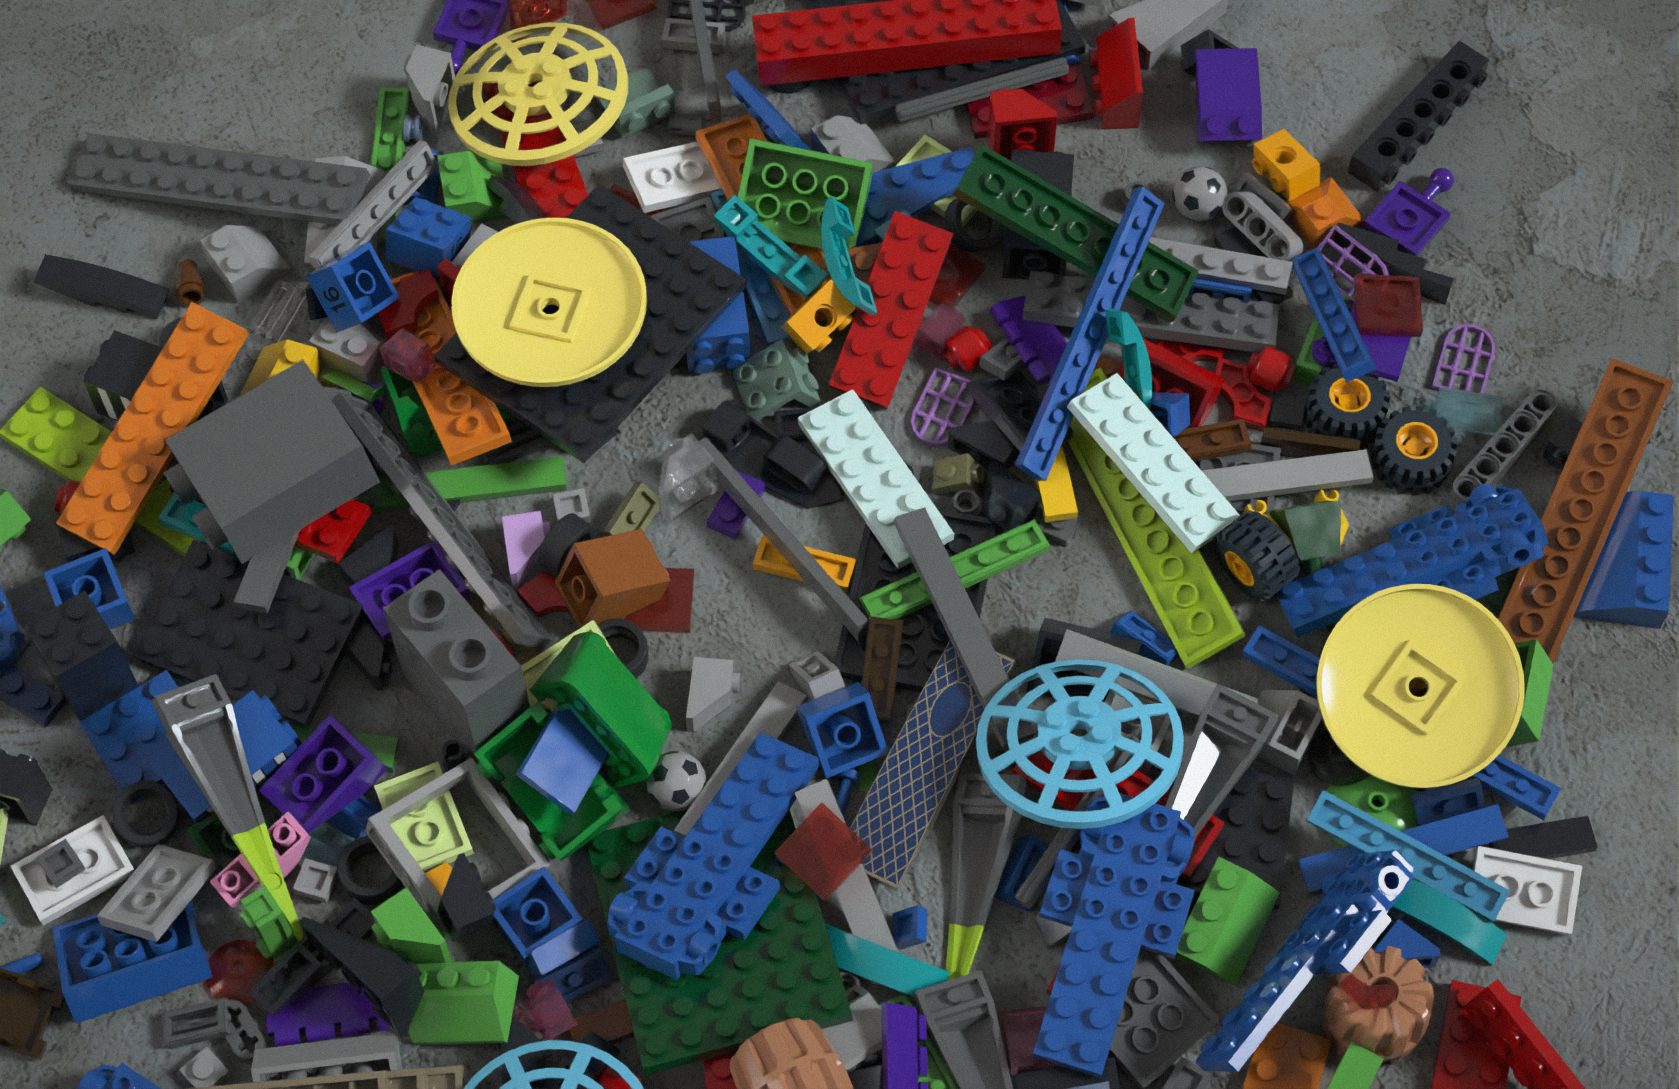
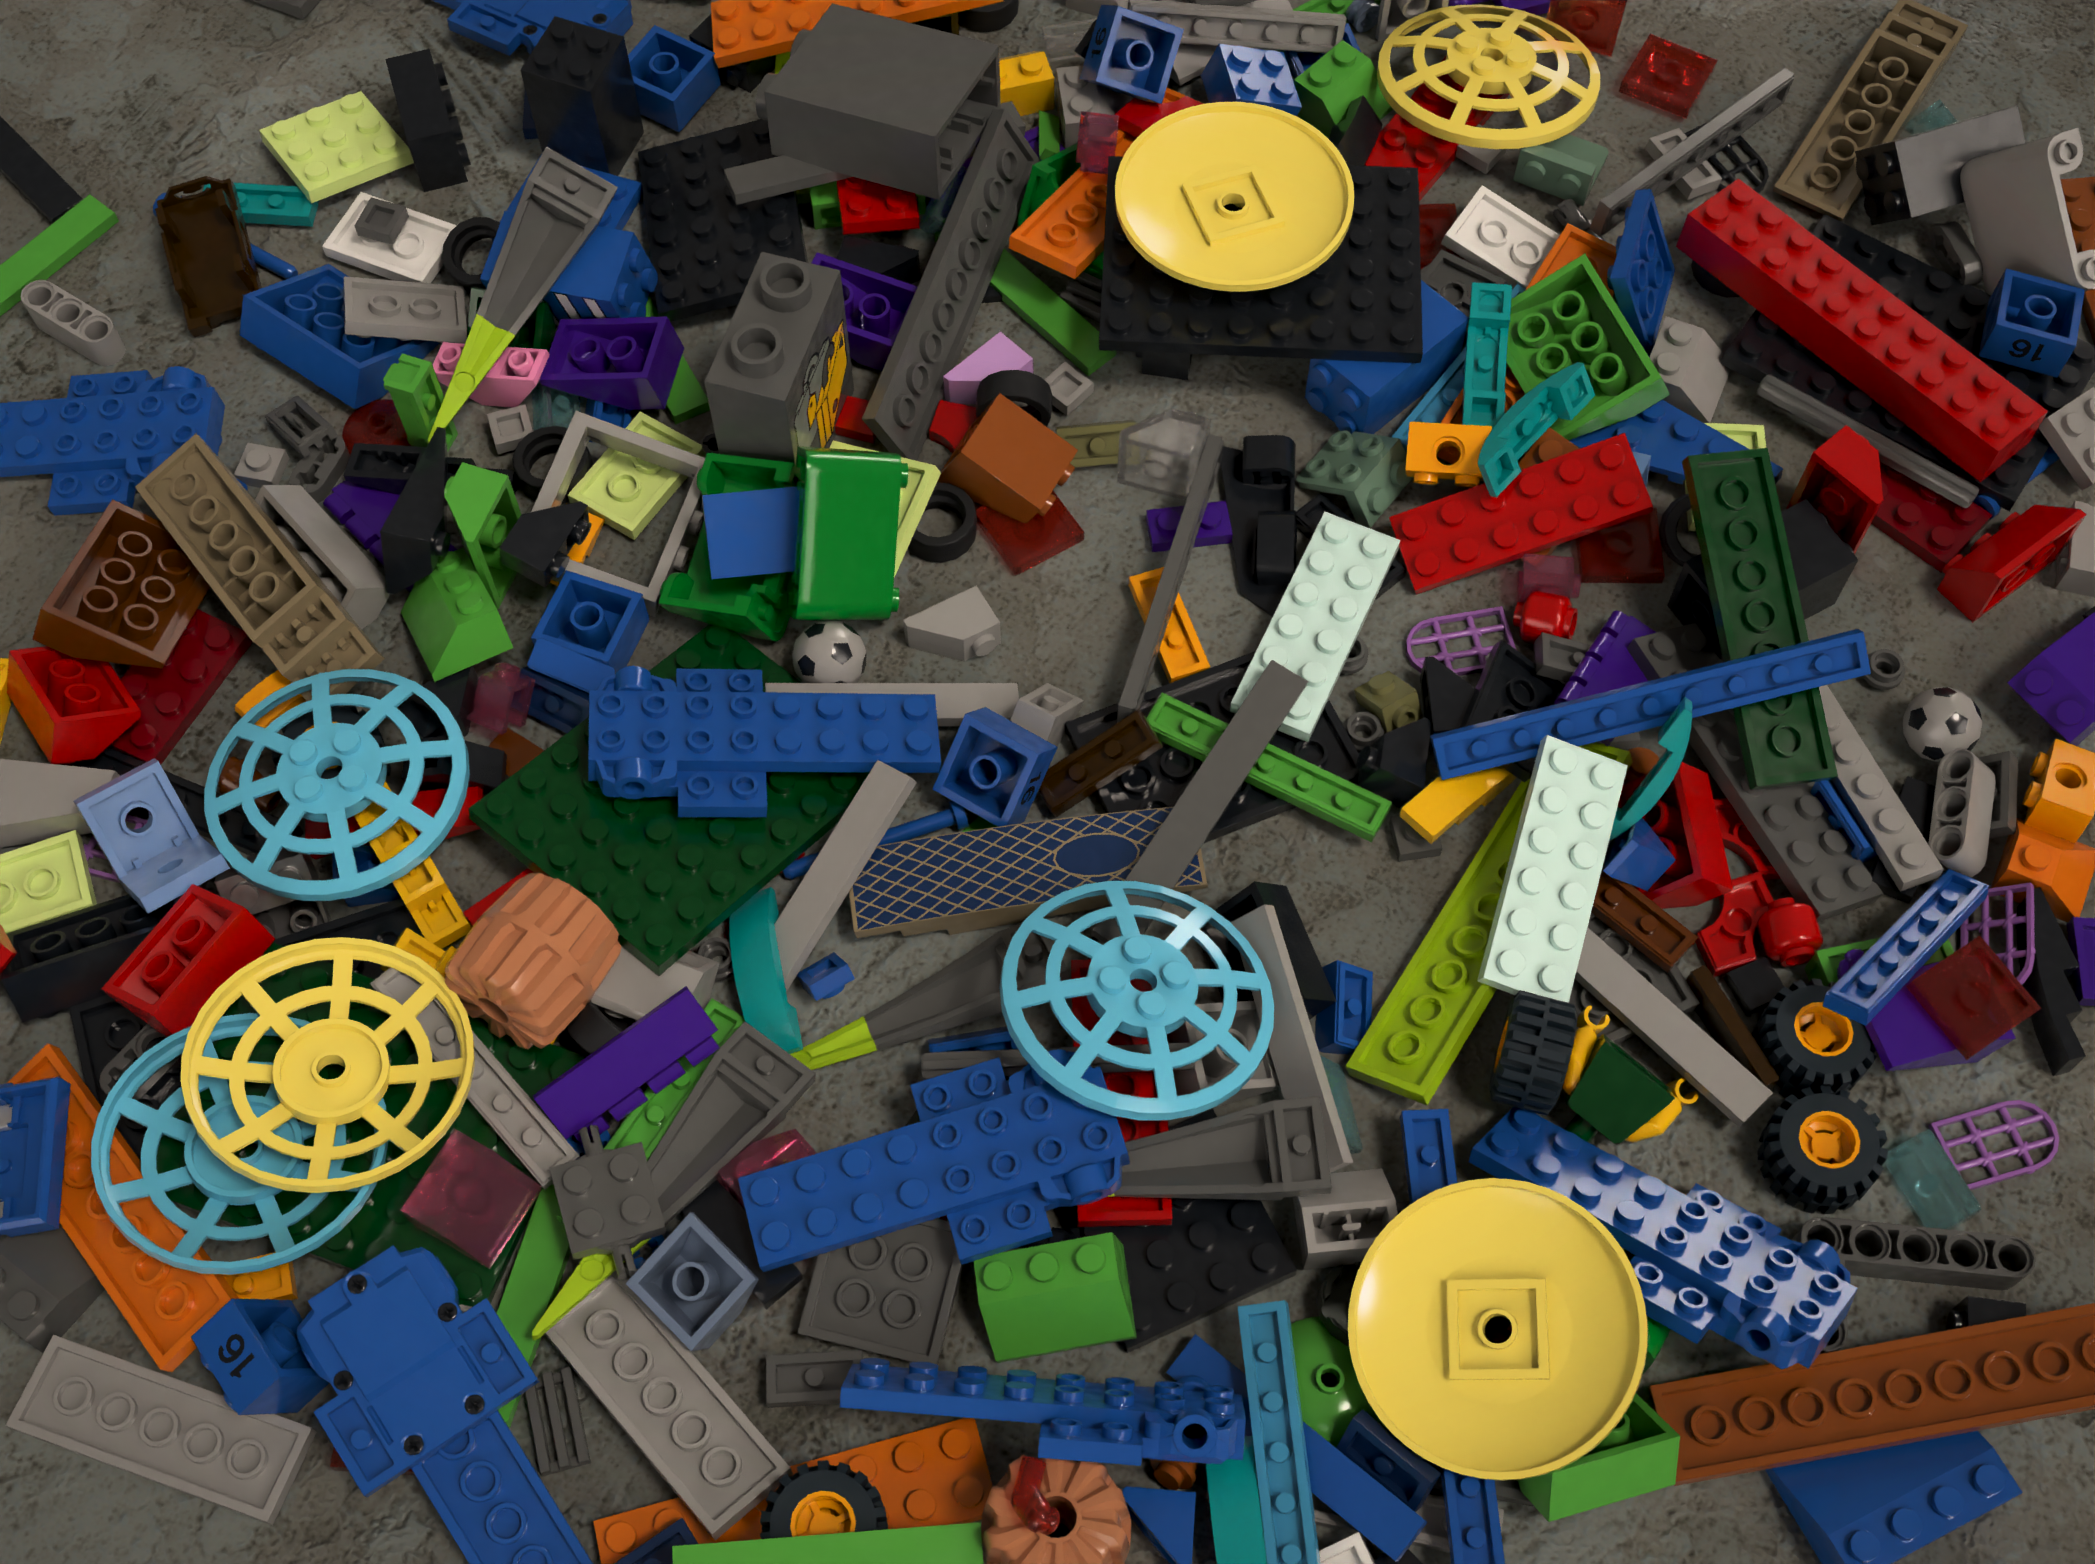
camera: 55 degrees right, 0 degrees up
(823, 851) = (830, 828): clear red plate -> none

